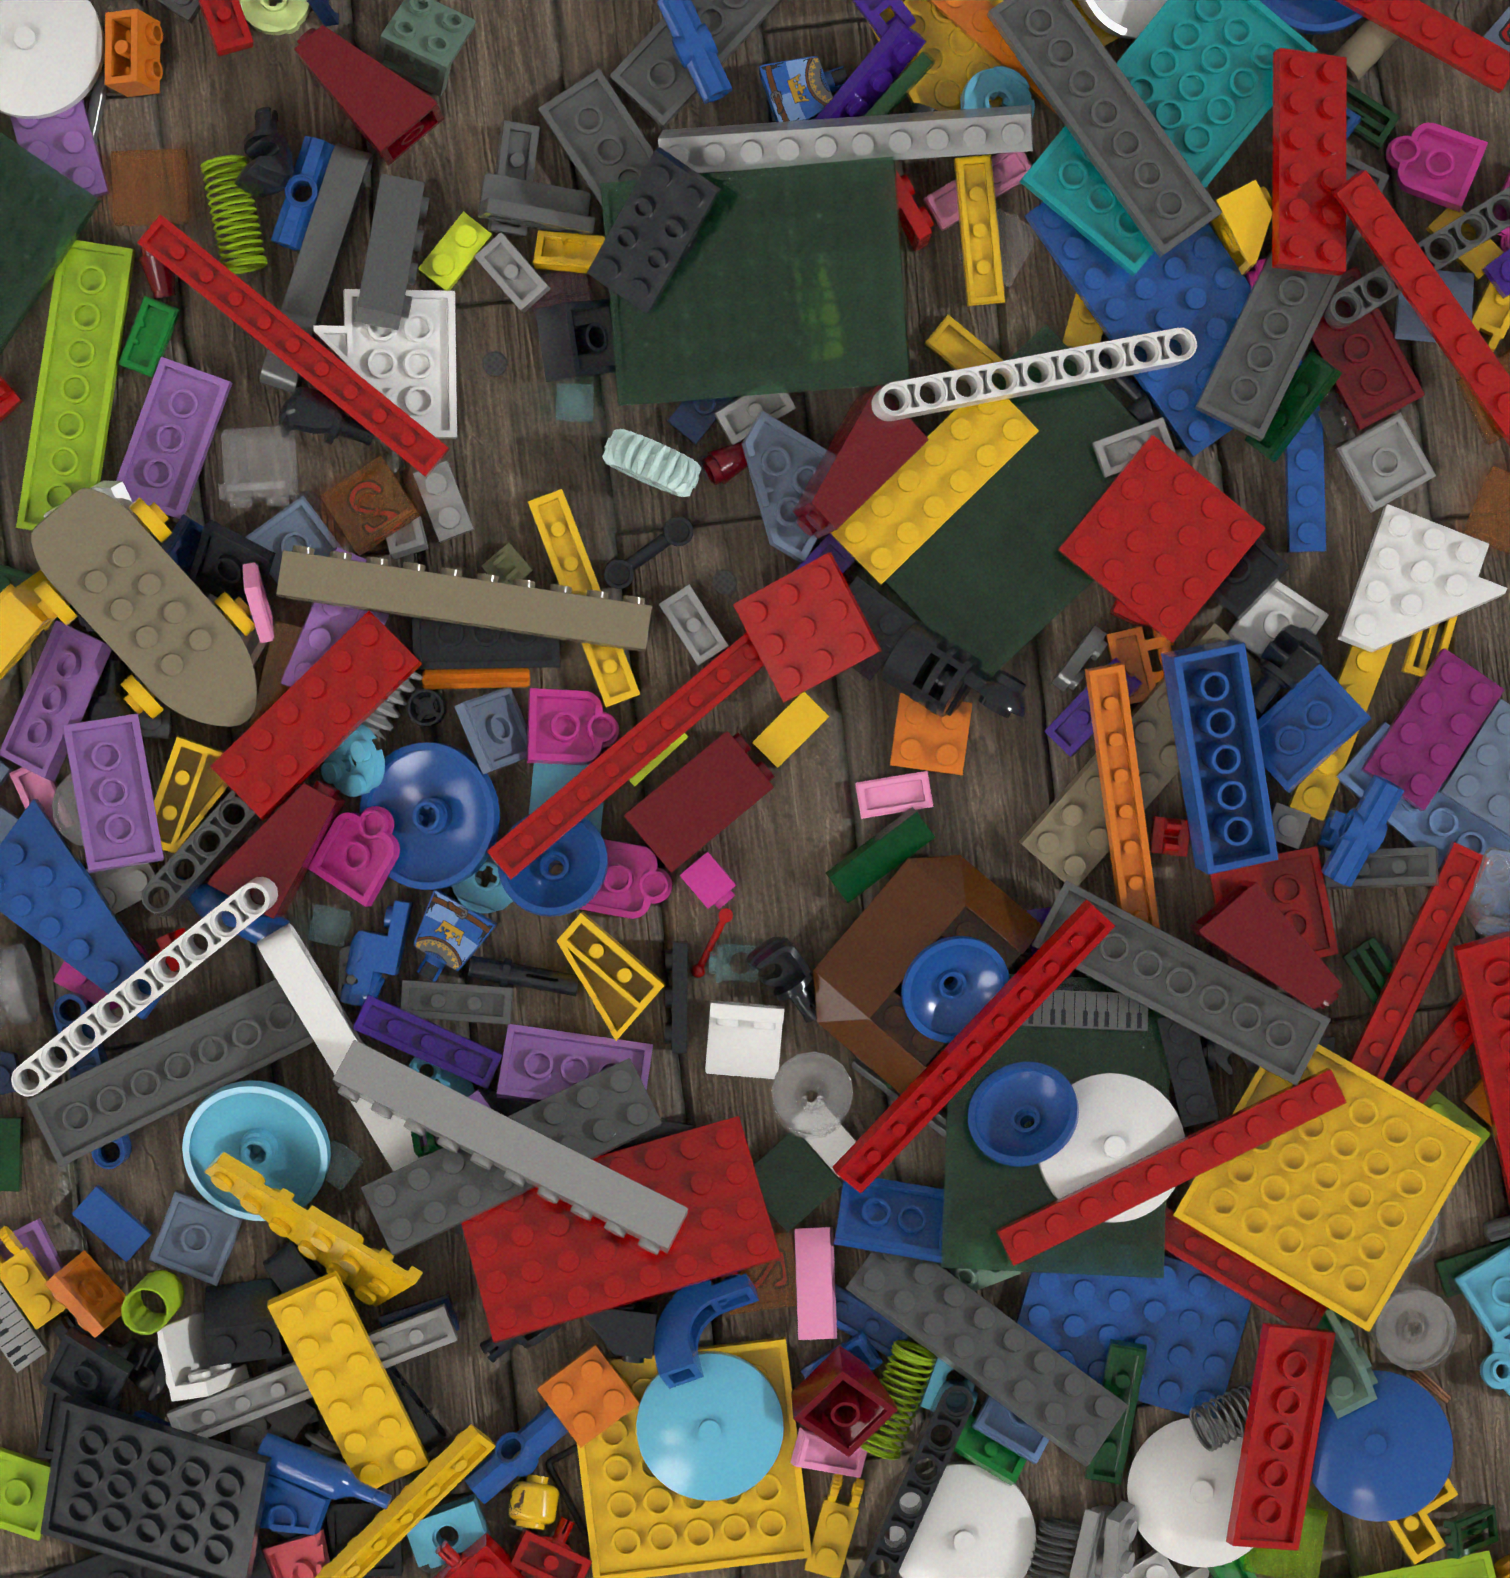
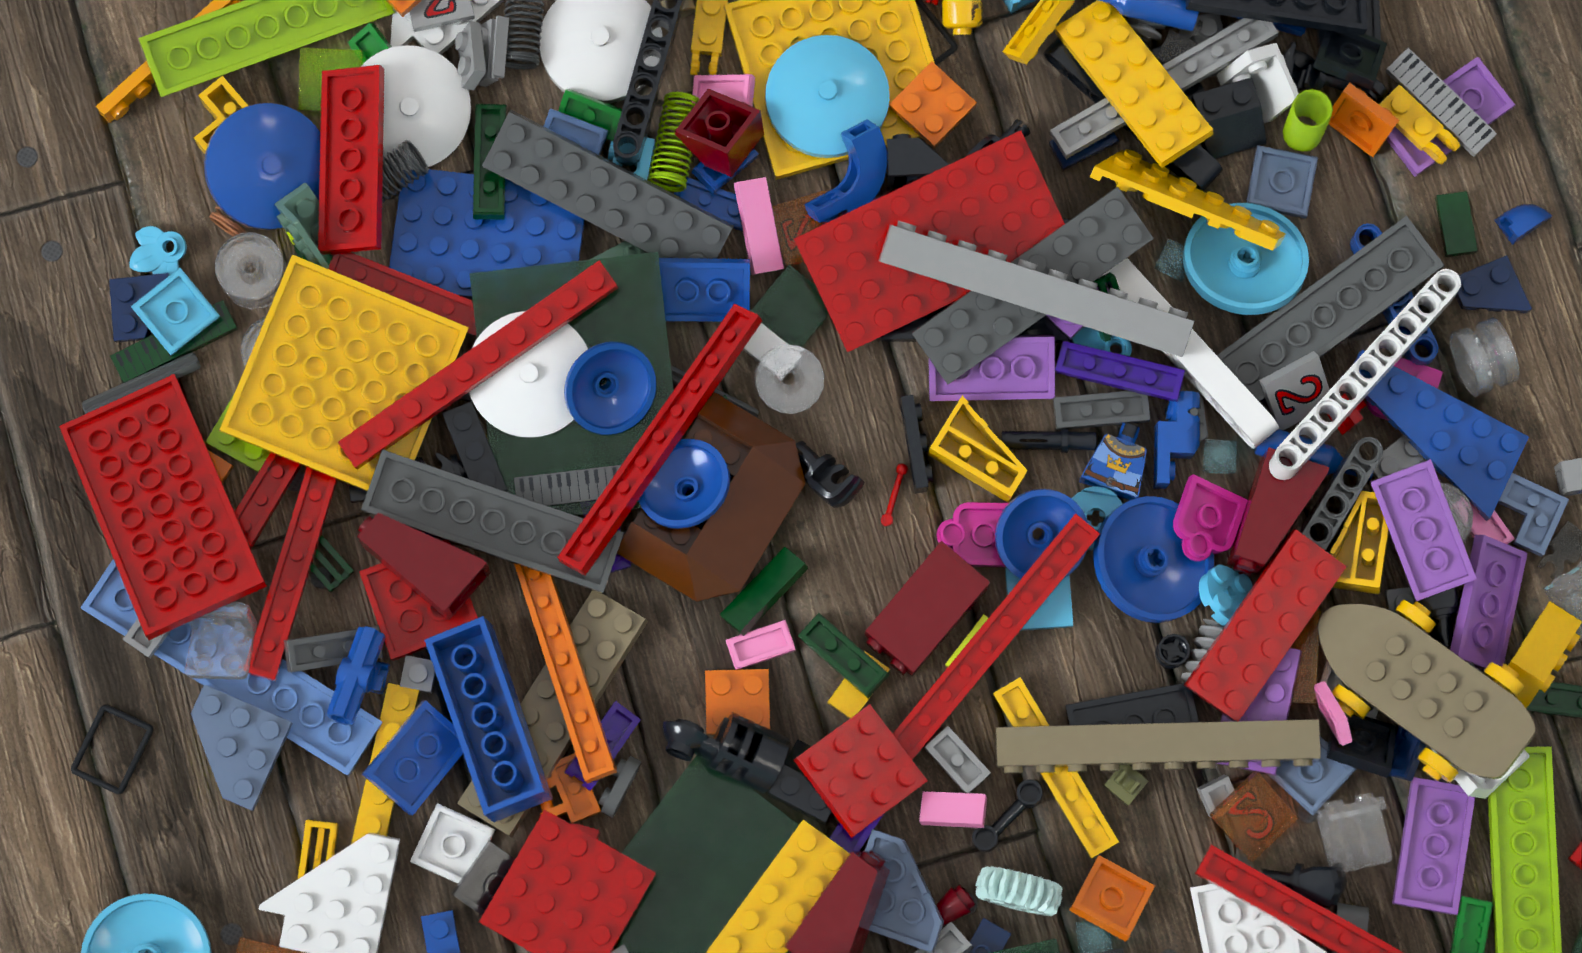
camera: 170 degrees right, 10 degrees down
(112, 1223) = (1353, 182): blue tile -> none
(227, 984) = (1295, 390): none -> light grey tile
(444, 502) = (1189, 830): light grey plate -> none
(476, 678) = (1135, 683): orange axle -> none
(494, 729) = (1110, 640): sand blue tile -> none
(500, 1466) = (995, 36): blue piece -> none
(547, 439) = (1112, 898): none -> orange plate
(567, 727) = (1049, 655): dark pink plate -> none
(708, 569) = (953, 809): none -> bright pink tile
(709, 881) = (906, 544): dark pink brick -> none
(720, 963) = (884, 480): clear light blue bracket -> none
(744, 1039) = (853, 418): white bracket -> none
(802, 765) = (843, 655): none -> dark green tile
(1169, 836) = (518, 648): red tile -> none
(1286, 662) = (444, 809): black piece -> none
(1433, 728) = (305, 775): magenta plate -> none
(1458, 1533) = (189, 107): dark green tile -> none

